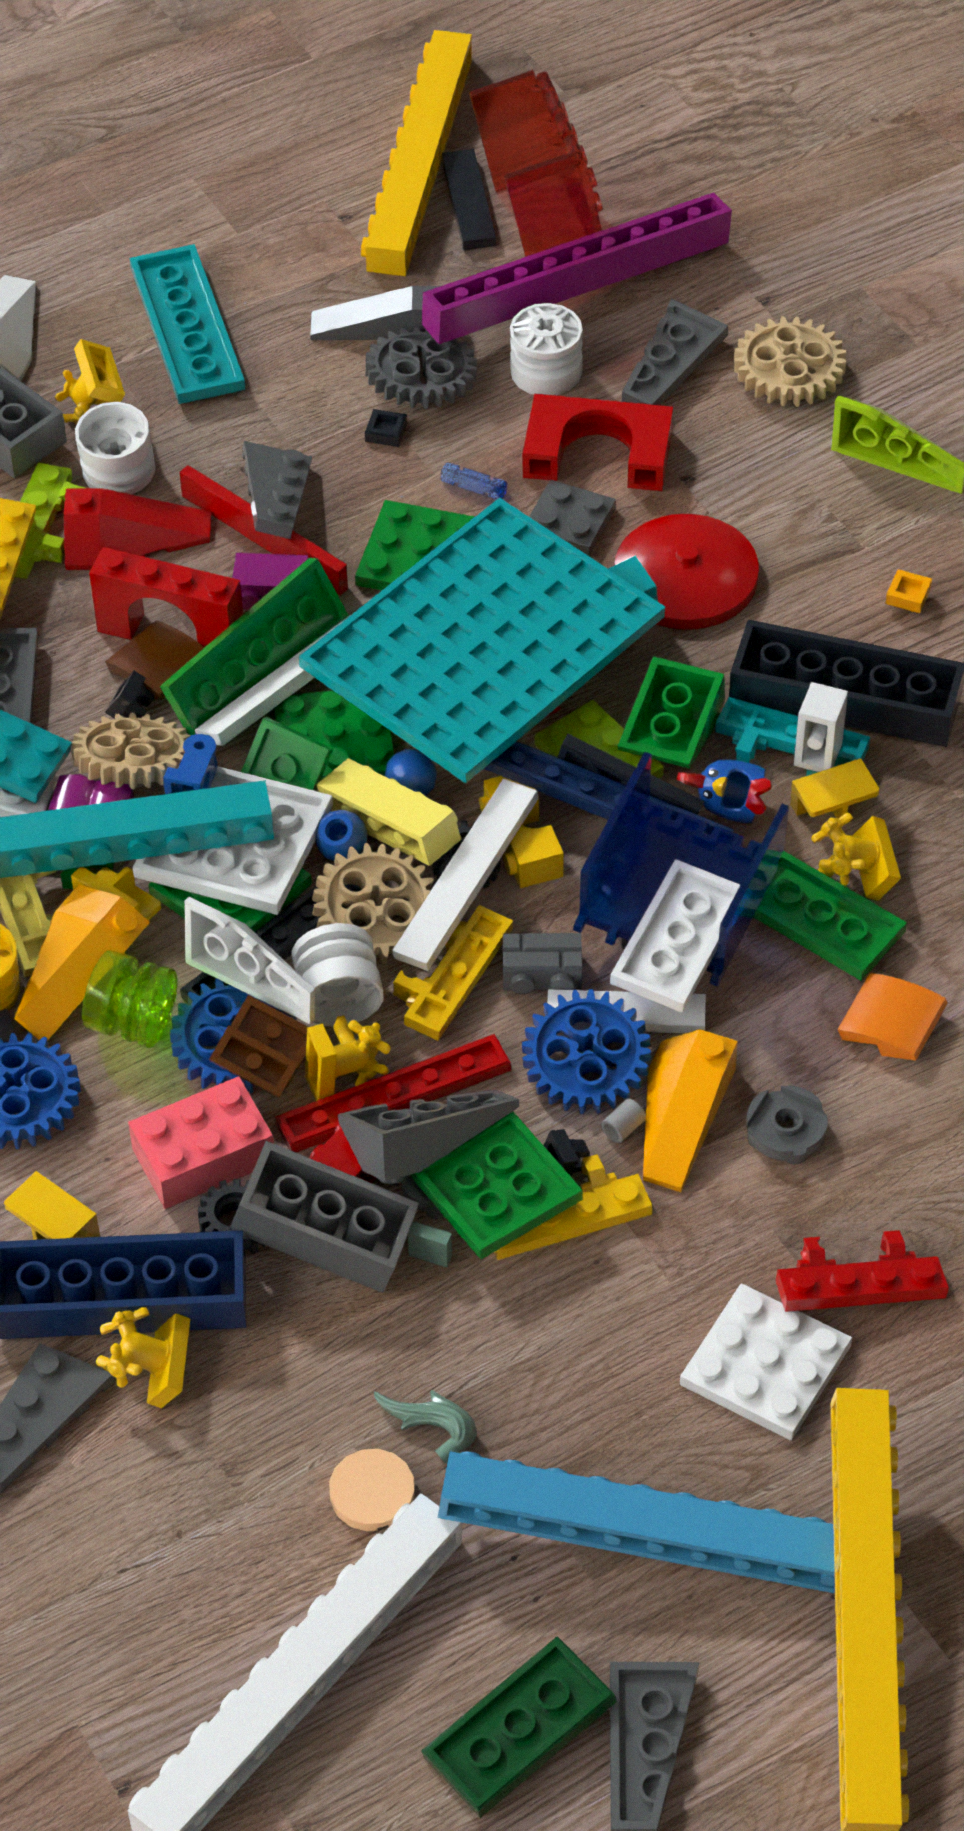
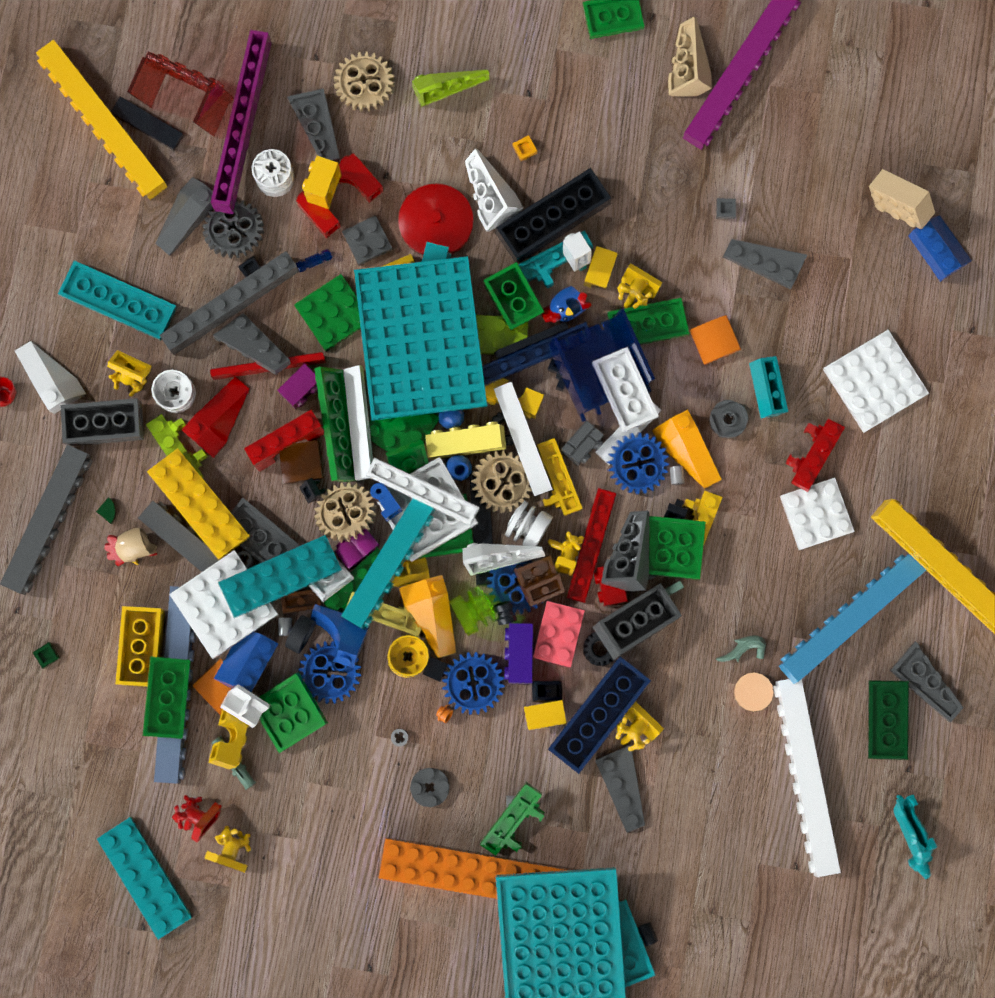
camera: 50 degrees left, 30 degrees up
(90, 1183) = (546, 690): none -> black slope
(97, 1110) = (519, 653): none -> dark purple brick
(164, 1036) = (505, 612): none -> black wheel
(250, 788) = (422, 491): none -> white tile
(311, 428) = (229, 303): none -> dark grey brick
(587, 385) = (322, 181): none -> yellow brick
(807, 594) = (494, 196): none -> white wedge
(893, 1129) = (768, 387): none -> teal brick

